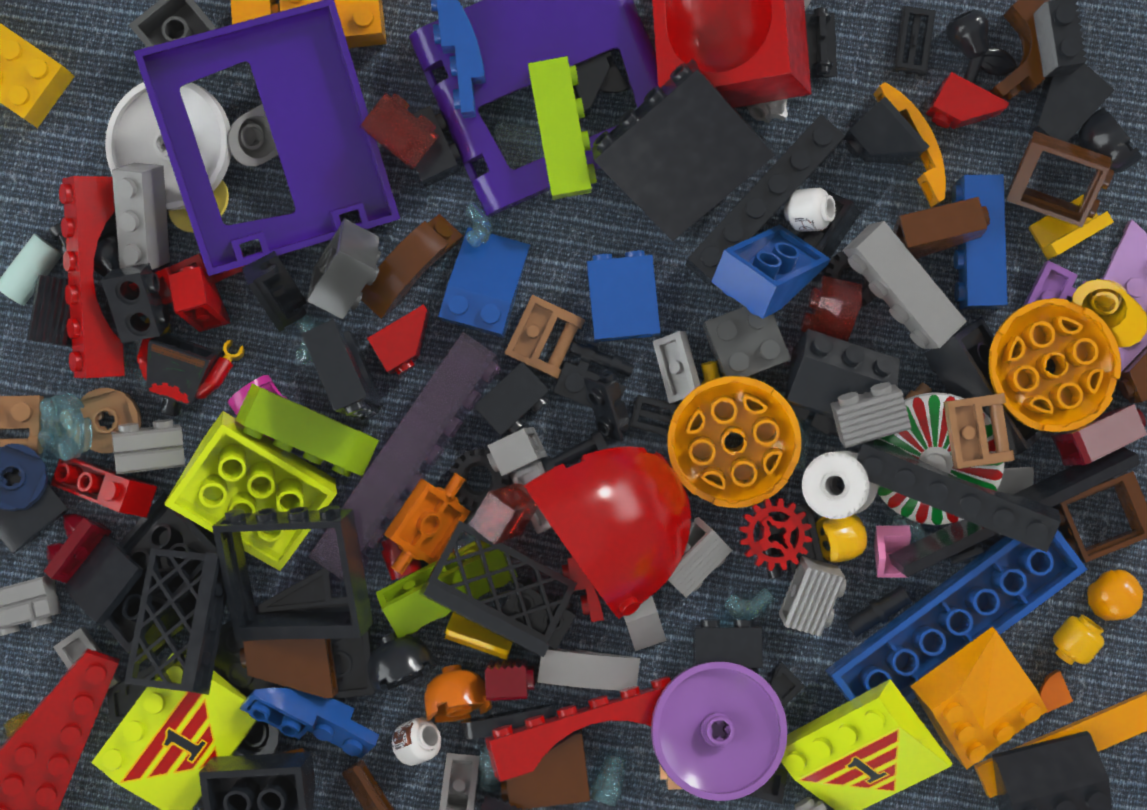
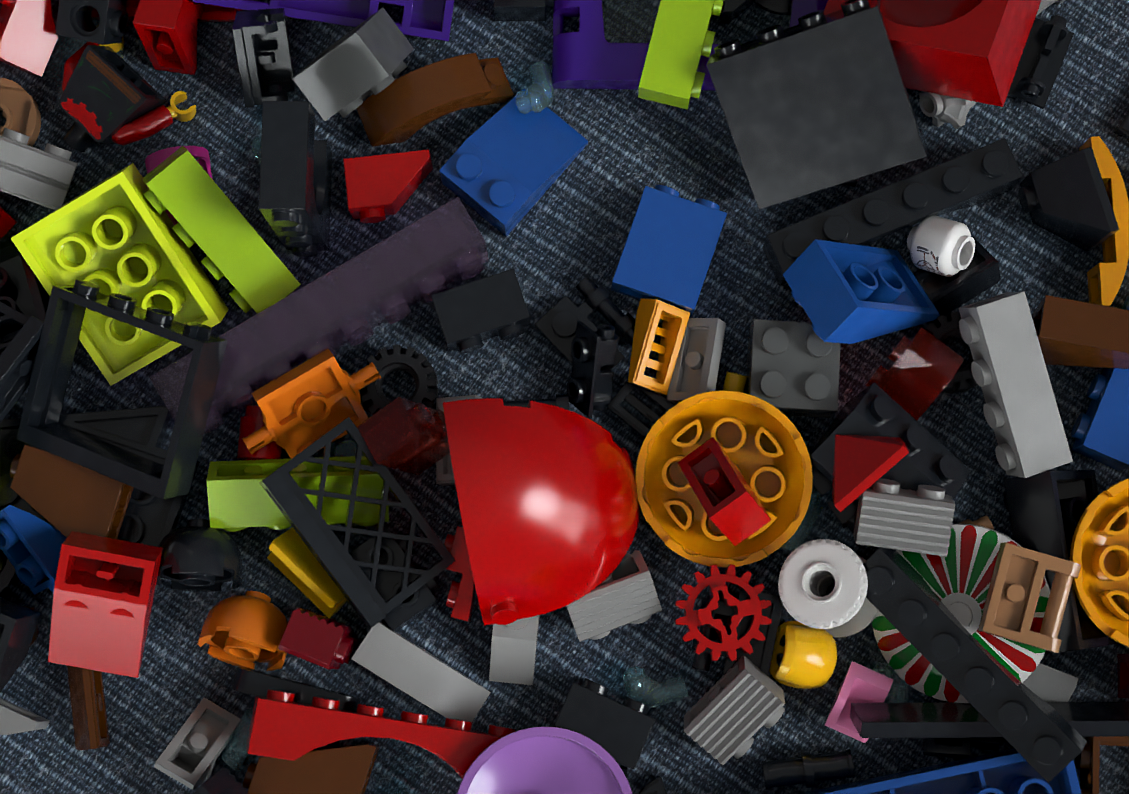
camera: 25 degrees right, 5 degrees down
(351, 724) = (102, 603): none -> red slope
(416, 741) = (173, 664): white head -> none
(516, 451) = (456, 369): light grey slope -> none
(534, 332) = (545, 244): medium nougat plate -> none
(632, 360) = (671, 334): none -> light orange slope
(739, 452) = (723, 492): none -> red slope
(825, 391) = (860, 463): none -> red slope

